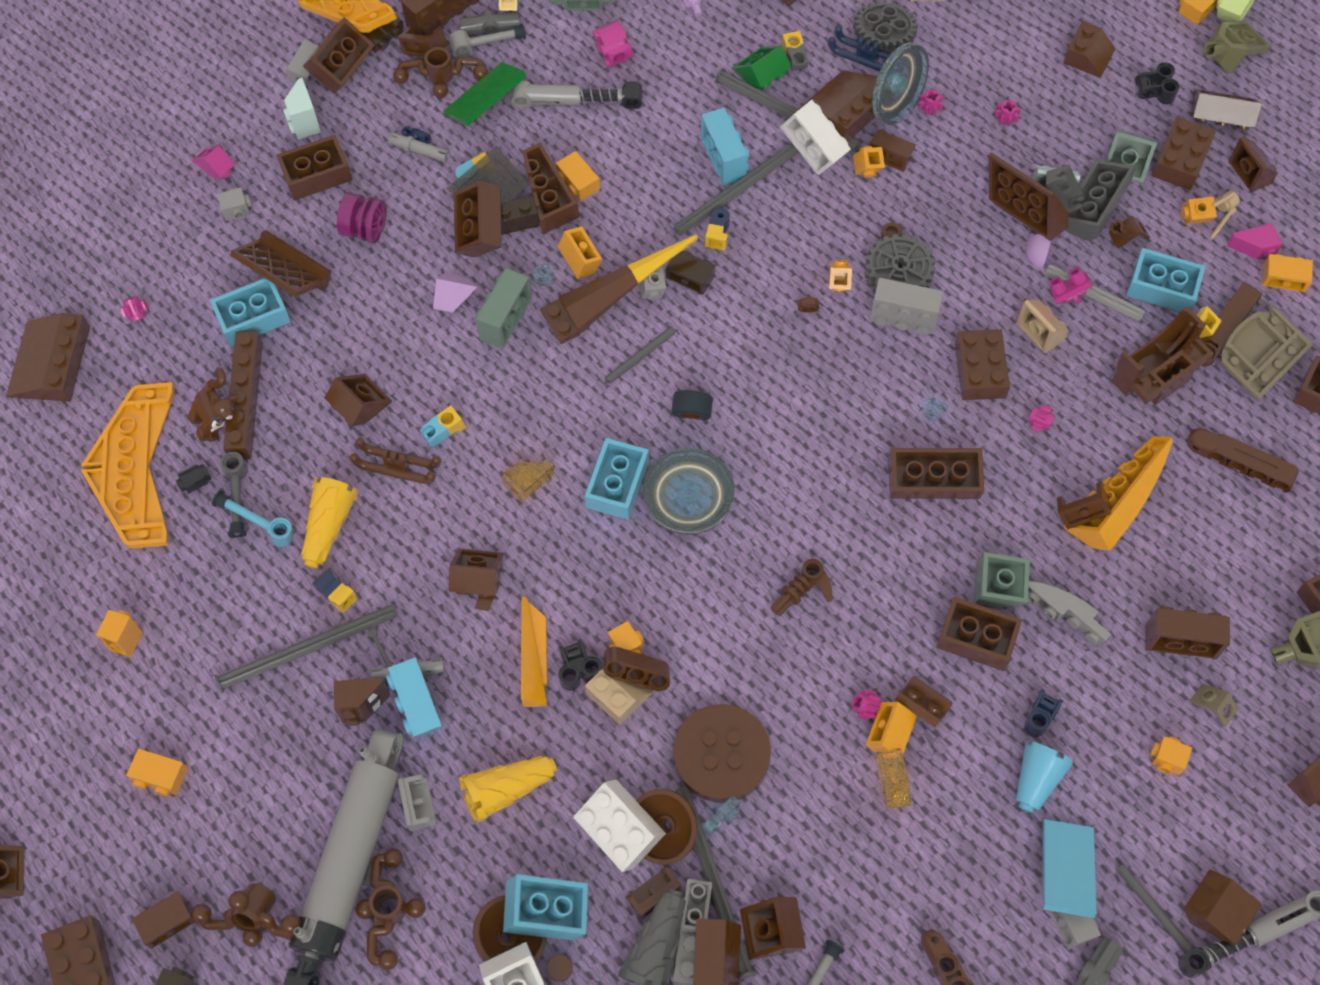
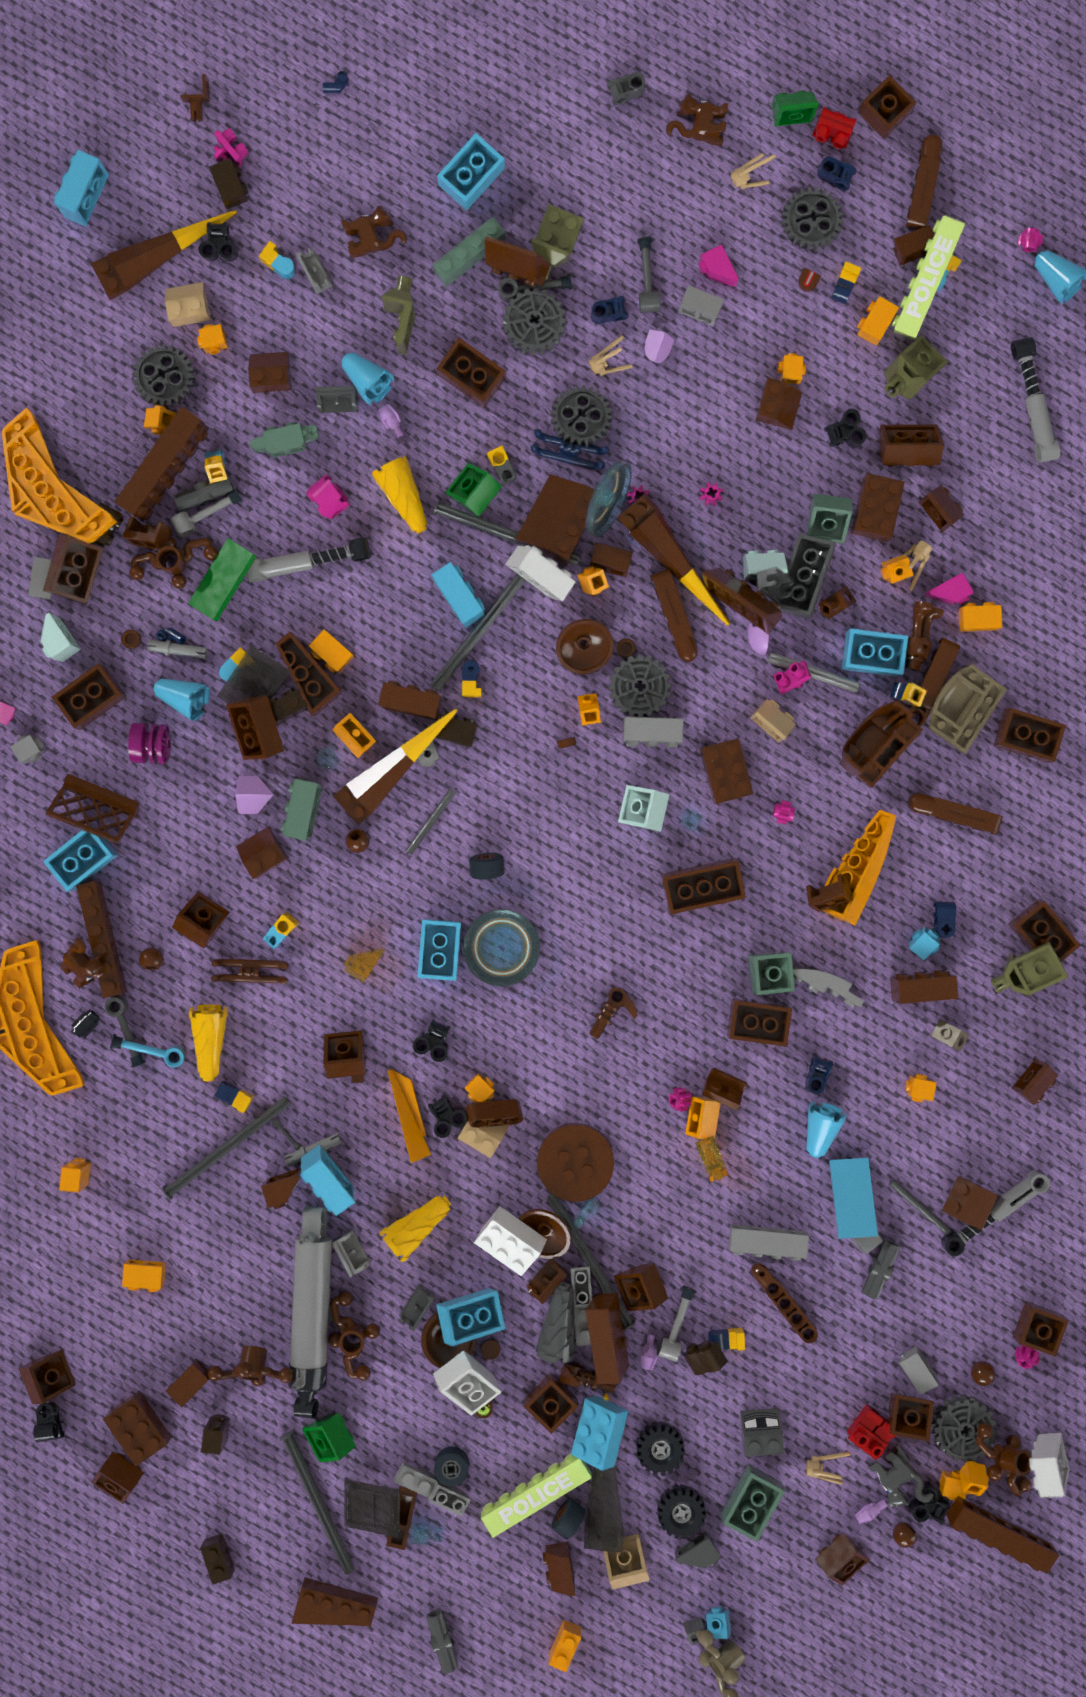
camera: 15 degrees left, 25 degrees up
(290, 426) = (151, 958): none -> reddish brown piece
(374, 131) = (131, 639): none -> reddish brown tile
(413, 185) = (183, 696): none -> medium azure cone
(447, 350) = (261, 853): none -> reddish brown slope
(480, 889) = (416, 1306): none -> dark grey hinge
(554, 354) = (357, 841): none -> reddish brown piece
(586, 577) = (434, 1040): none -> black piece
(646, 227) = (410, 700): none -> reddish brown brick
(687, 48) = (402, 492): none -> yellow cone
(858, 205) = (588, 656): none -> reddish brown dish
(882, 383) = (643, 808): none -> light aqua slope
(941, 133) = (653, 533): none -> reddish brown plate
(949, 905) = (768, 1241): none -> light grey brick
(951, 211) = (675, 614): none -> reddish brown piece
(1110, 22) = (791, 368): none -> light orange brick
(1193, 586) = (925, 942): none -> medium azure brick
(1216, 279) = (919, 643): none -> reddish brown piece
(1218, 568) = (944, 917): none -> dark blue piece

